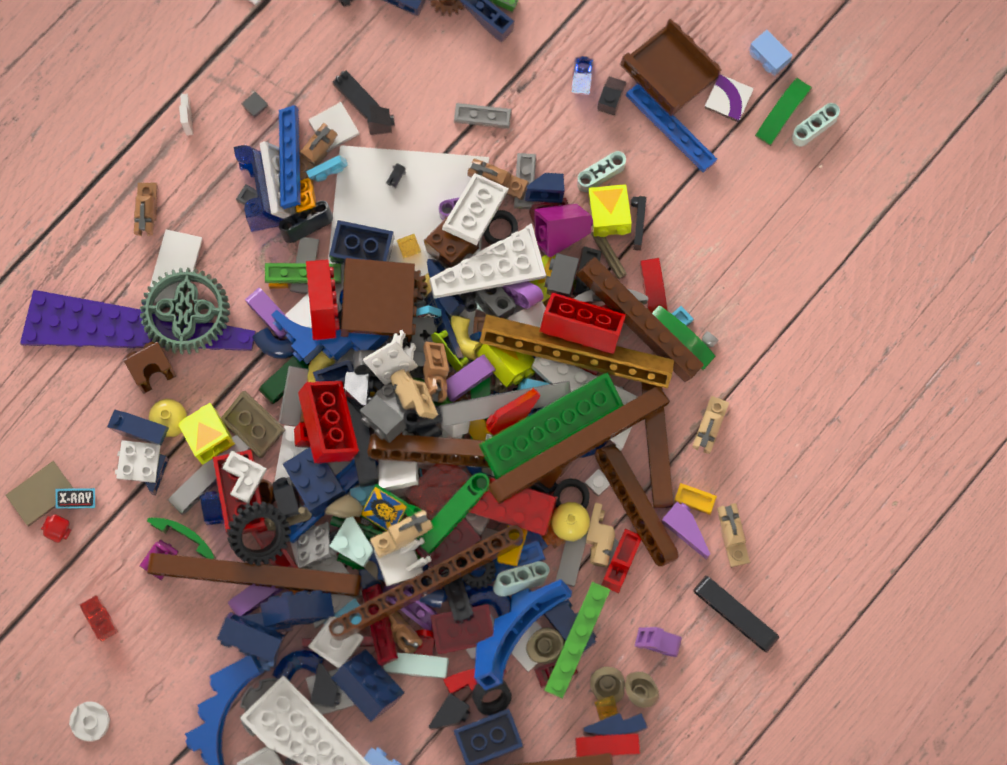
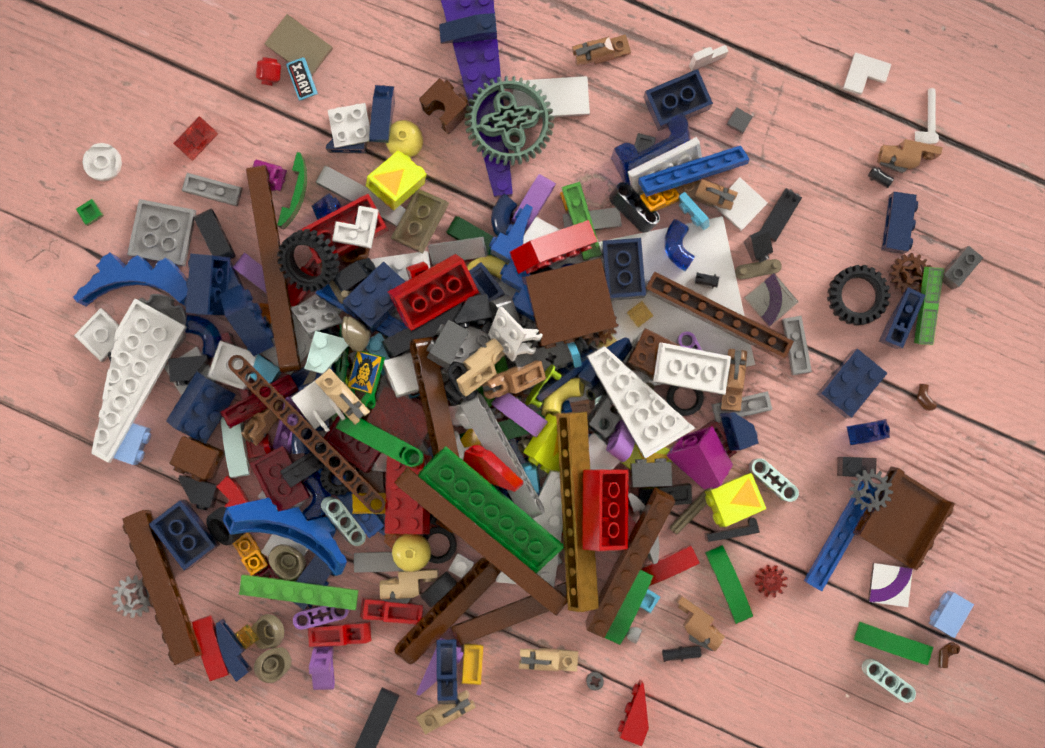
camera: 75 degrees right, 10 degrees up
(83, 322) = (469, 29): none -> dark blue slope
(136, 746) = (89, 212): none -> green plate
(154, 619) = (212, 189): none -> light grey tile
(180, 679) = (161, 232): none -> light grey plate
(198, 628) = (214, 234): none -> black beam
(216, 152) = (680, 95): none -> dark blue brick
(355, 195) = (674, 245): none -> clear blue cylinder
(400, 129) = (758, 269): none -> dark tan piece
(417, 703) = (197, 459): none -> reddish brown piece
(432, 125) = (771, 299): none -> clear smoke tile
(433, 173) = (719, 316): none -> reddish brown brick
(453, 27) = (874, 279): none -> black tyre
(526, 682) = (250, 553): none -> light orange slope
(533, 76) = (851, 383): none -> dark blue brick
(568, 18) = (923, 398): none -> reddish brown arm
(611, 633) = (318, 620): none -> medium lavender beam
(613, 507) = (438, 589): none -> black tyre
(630, 617) = (339, 634): none -> red slope
(643, 86) = (862, 493): none -> dark grey gear
(687, 238) = (729, 584): none -> green slope
(690, 195) = (773, 587): none -> clear red gear
(694, 518) = (447, 672): none -> dark blue slope
(717, 277) = (699, 626): none -> medium nougat plate
(739, 302) = (681, 653): none -> black axle
(739, 393) = (589, 679): none -> dark grey bush
(791, 360) = (635, 724): none -> red slope
(804, 68) = (945, 652): none -> reddish brown arm

